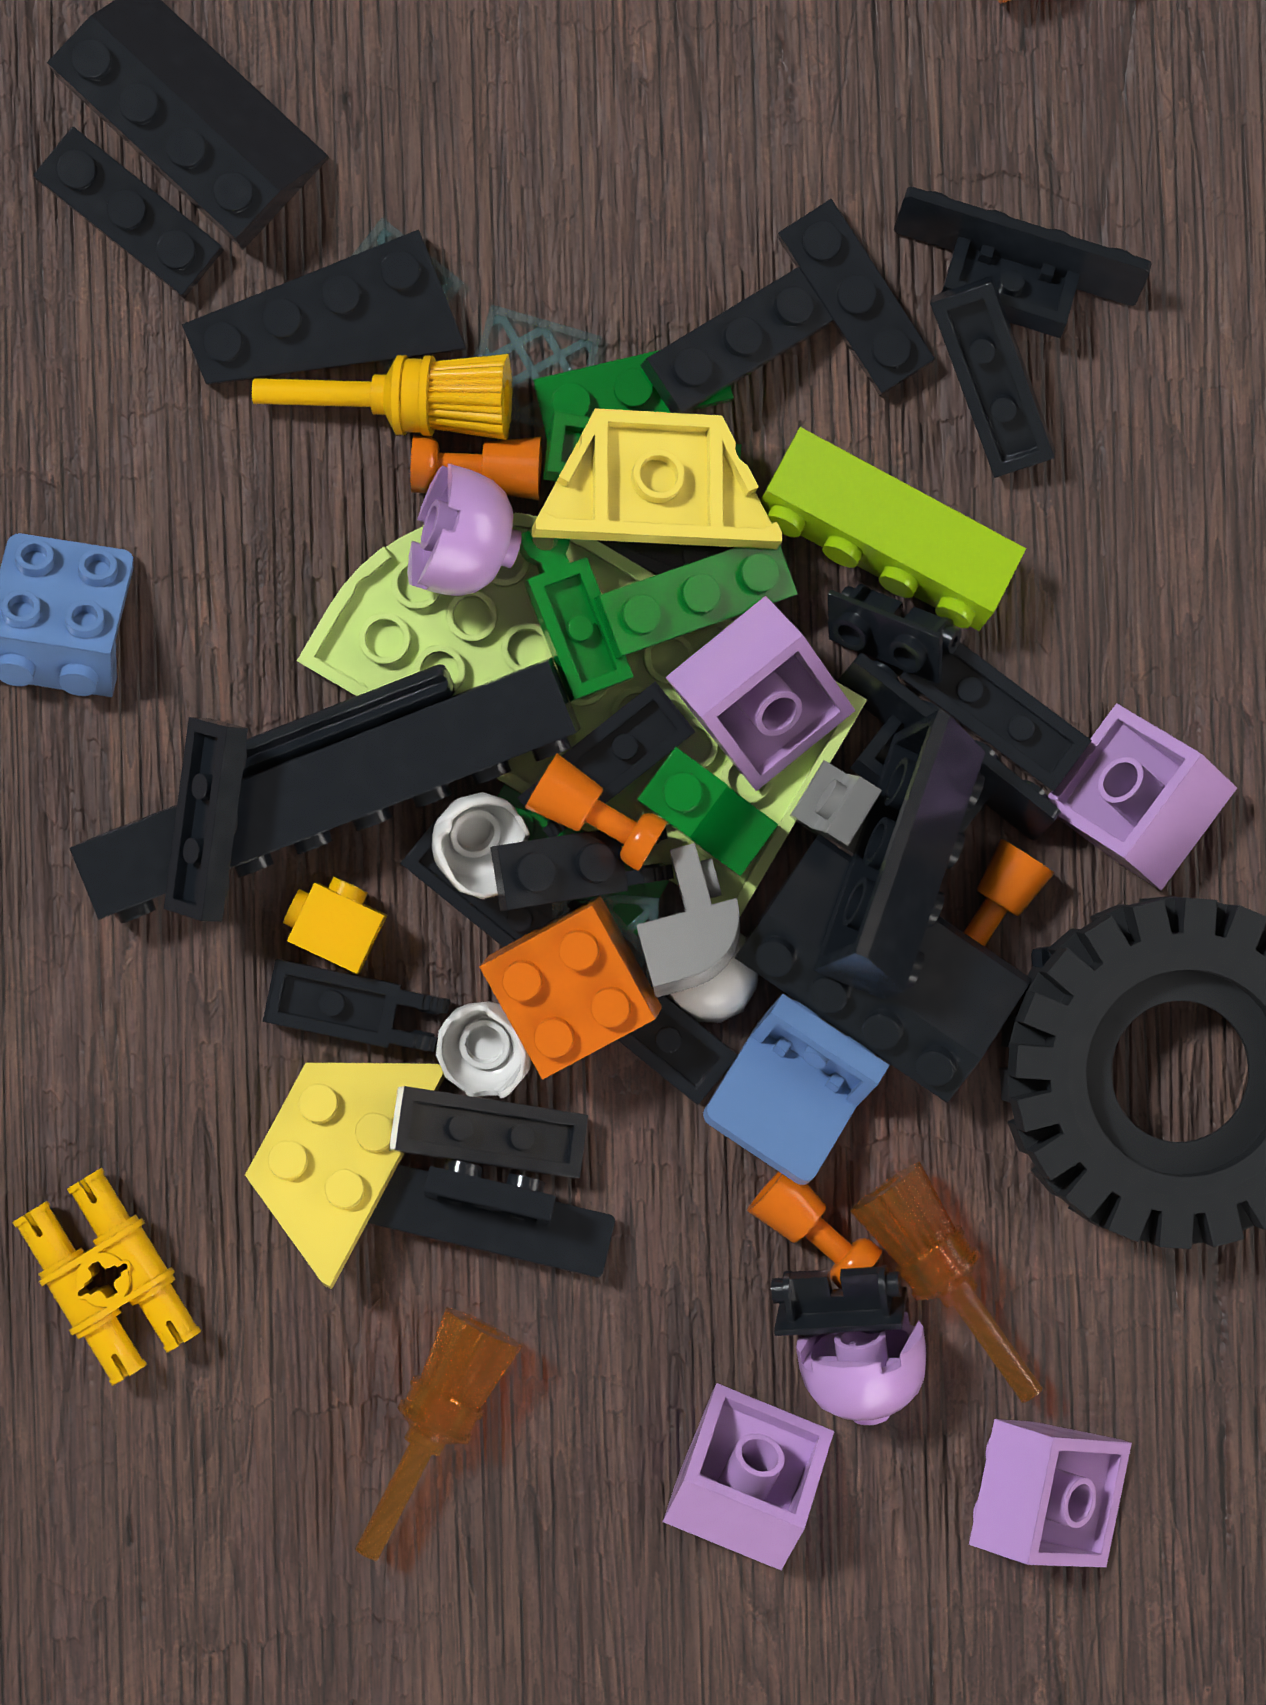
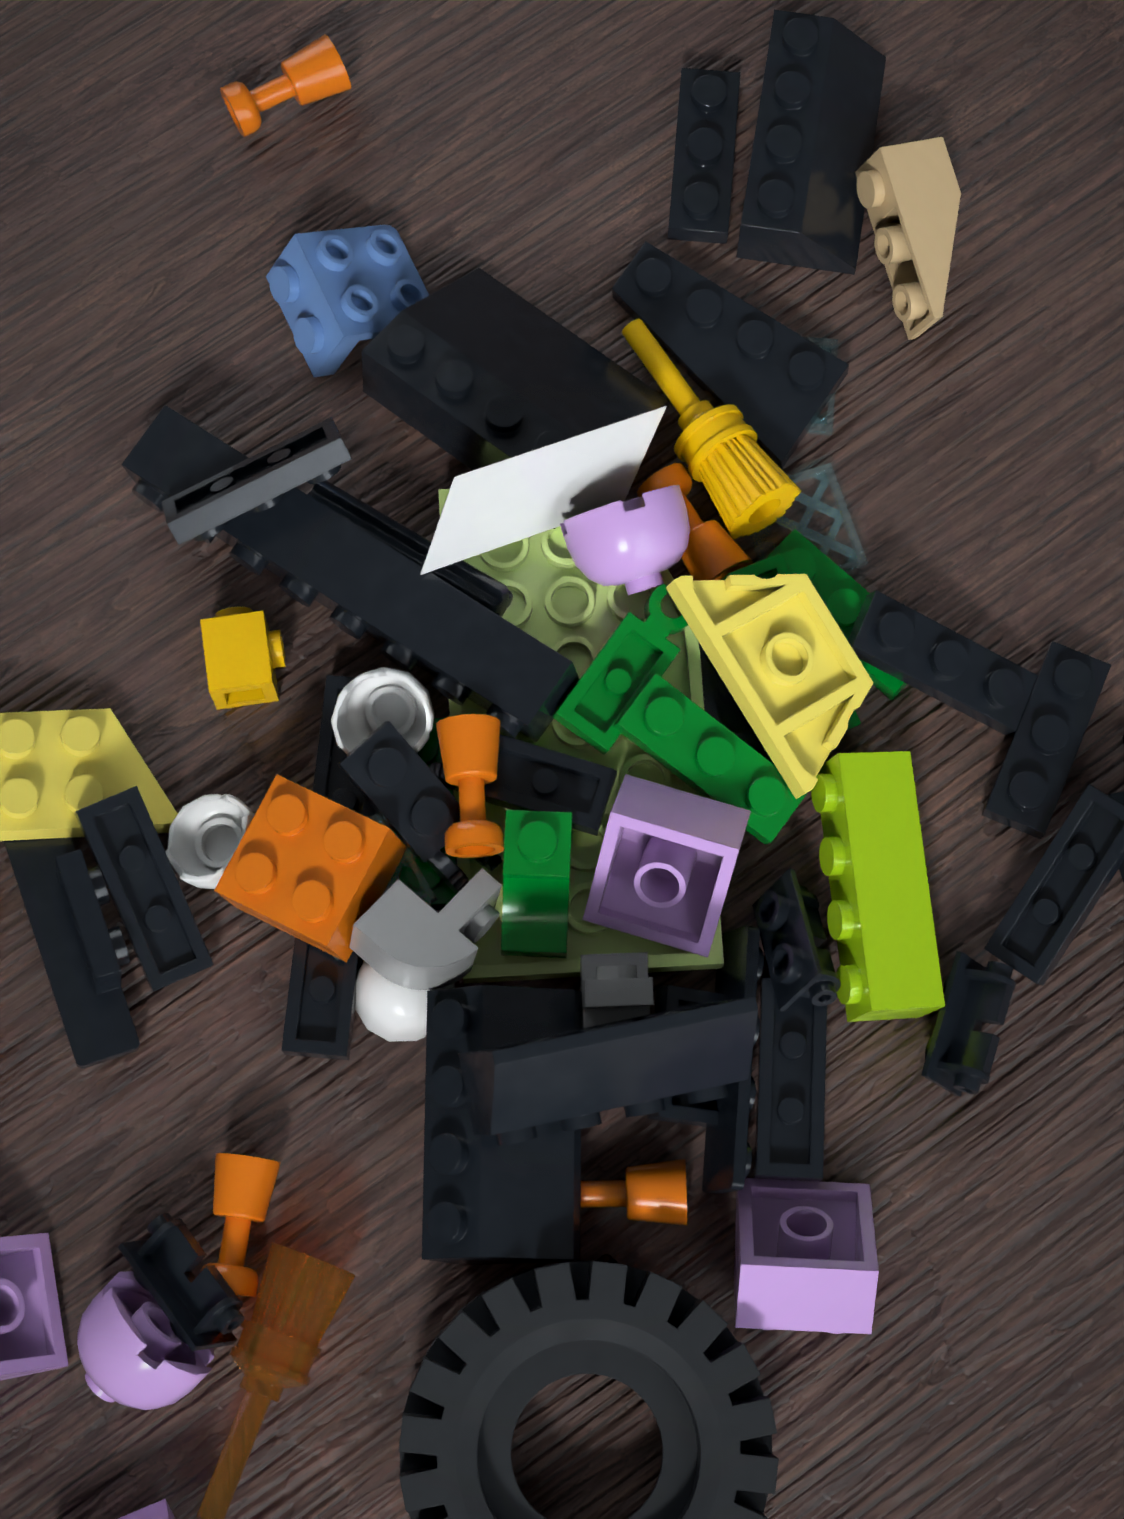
camera: 60 degrees right, 15 degrees down
(249, 537) = (495, 374): none -> black slope
(321, 74) = (914, 219): none -> tan slope
(346, 1005) = (179, 710): black hinge -> none
(386, 587) = (539, 489): none -> white sticker
(793, 1089) = (345, 1120): medium blue bracket -> none
(1029, 517) = (958, 1053): none -> black hinge

